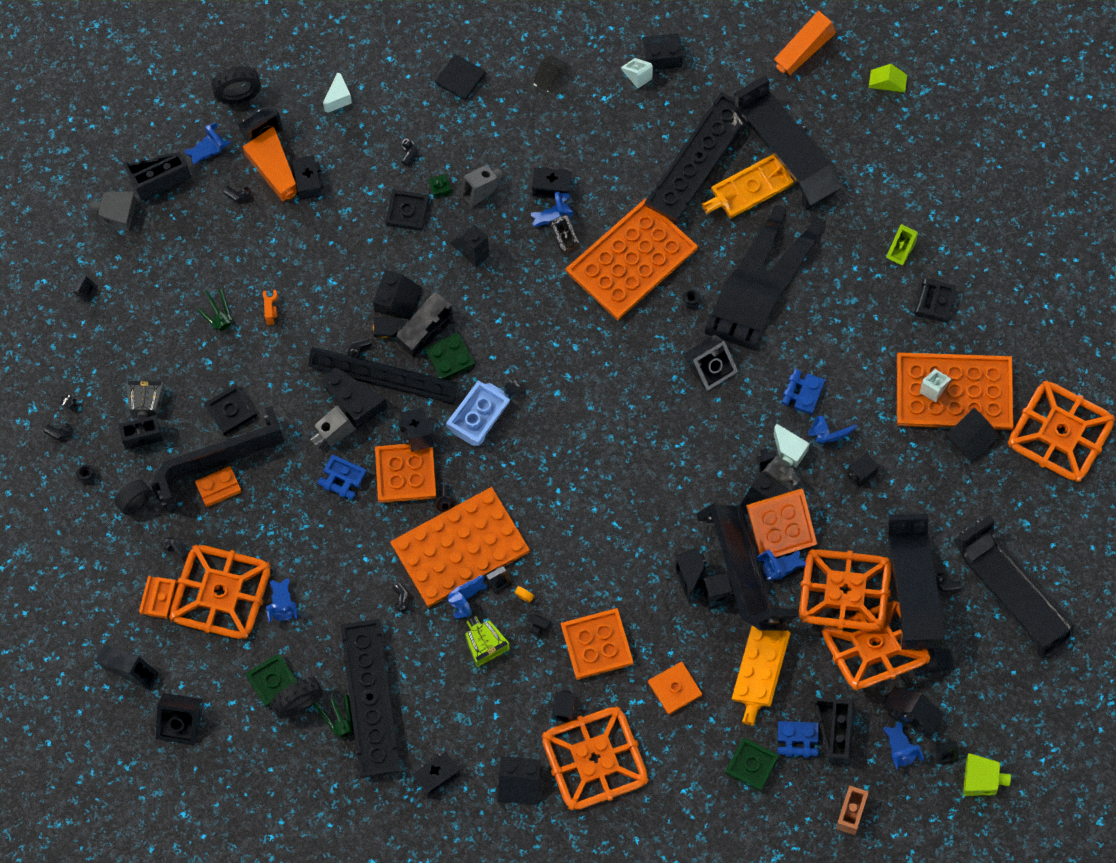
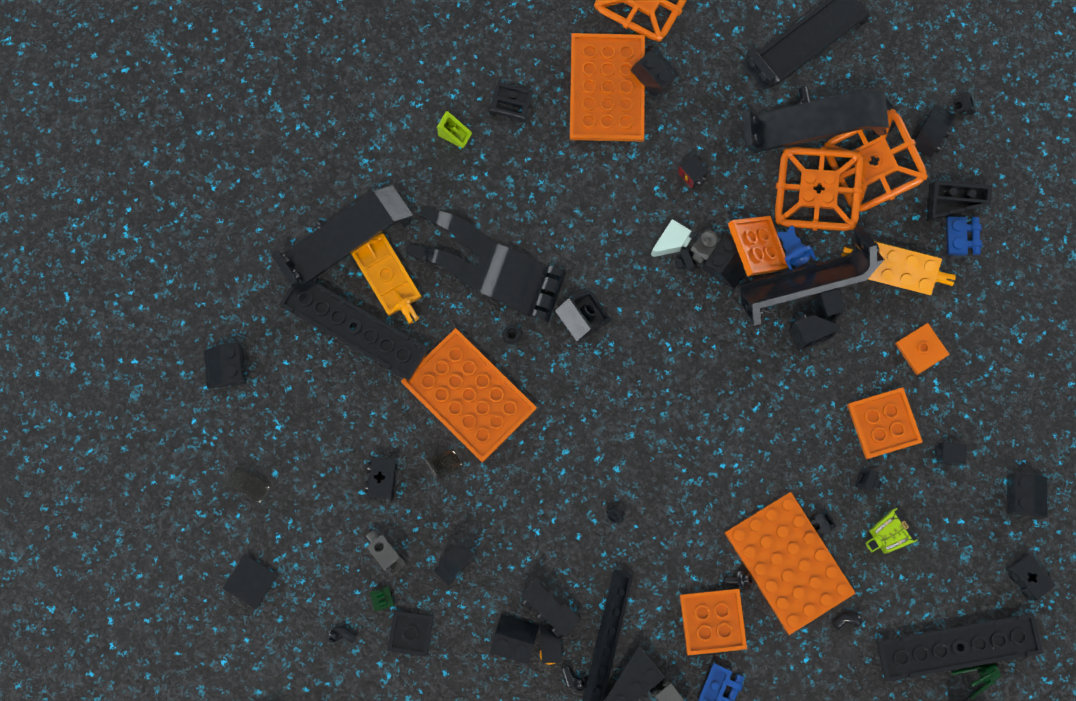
camera: 95 degrees left, 10 degrees up
(416, 429) = (659, 611): black brick -> none
(449, 356) = (581, 581): dark green plate -> none
(459, 596) = (848, 563): blue hair -> none
(478, 413) = (645, 546): light blue slope -> none
(524, 594) = (838, 495): light orange tile -> none
(548, 215) = (417, 471): blue hair -> none
(589, 770) = (1010, 425): orange plate -> none
(638, 71) = (249, 391): light aqua slope -> none
(751, 764) = (993, 277): dark green plate -> none
(805, 43) = (225, 220): orange slope -> none
(809, 392) = (612, 222): blue plate -> none
(821, 429) = (659, 204): blue hair -> none
(852, 810) = (1033, 185): nougat brick -> none
(888, 78) = (264, 142): lime slope -> none
(902, 751) = (967, 143): blue hair -> none
(934, 385) = (606, 101): light aqua slope -> none
(983, 776) = (988, 73): lime torso -> none

